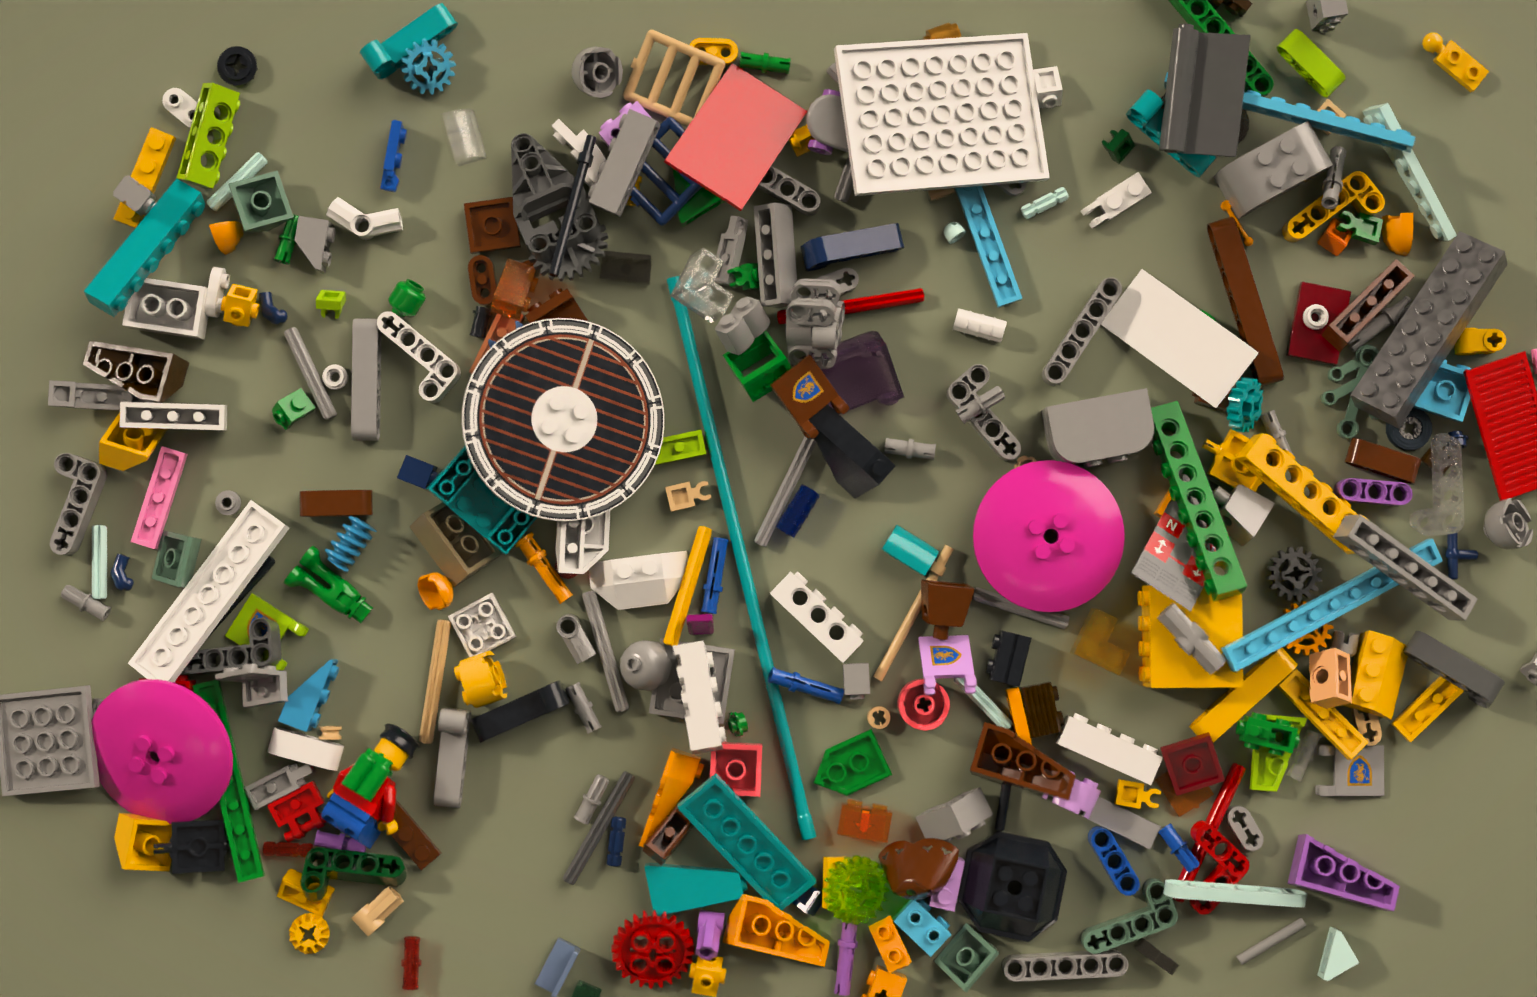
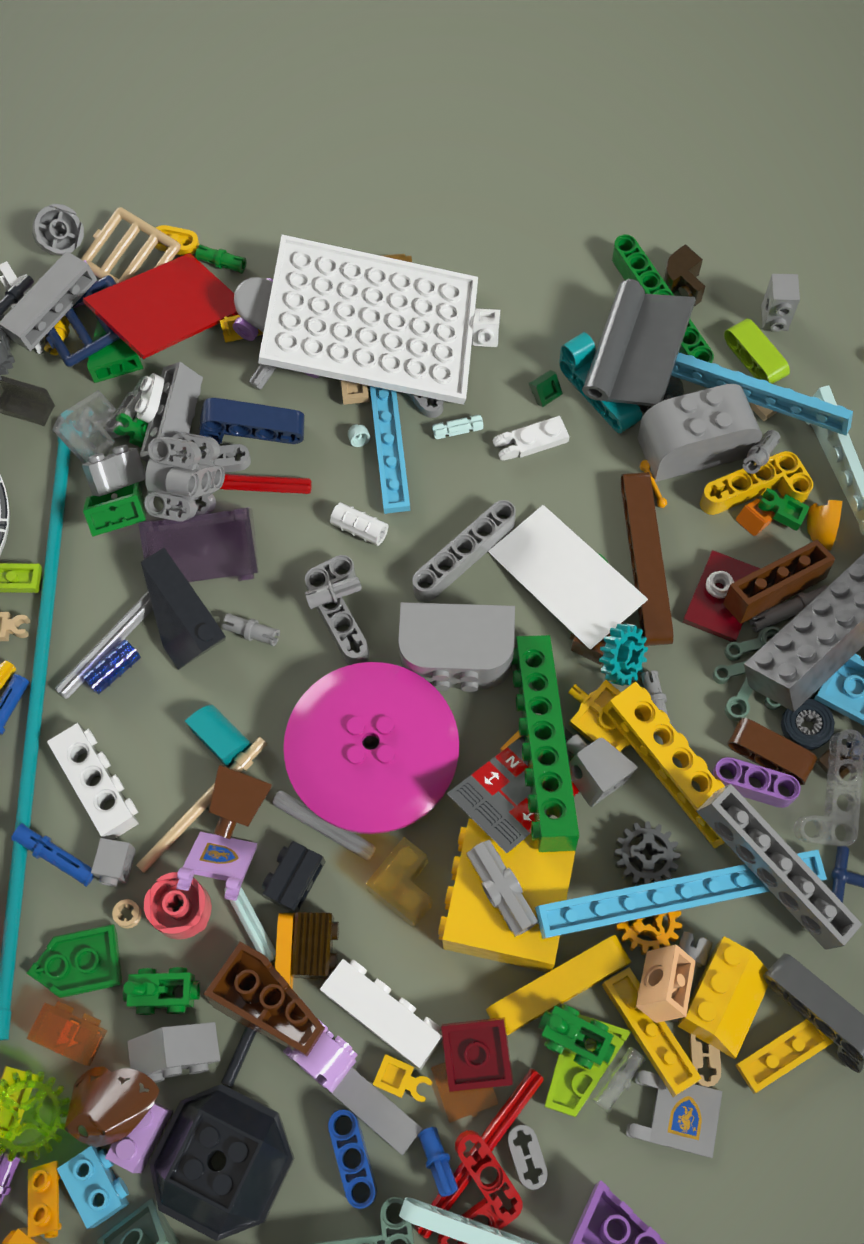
camera: 15 degrees right, 20 degrees down
(753, 243) = (150, 398): none -> white plate
(801, 192) = (195, 355): light grey beam -> none
(805, 392) = (149, 536): reddish brown flag -> none
(922, 774) = (156, 990): none -> green brick

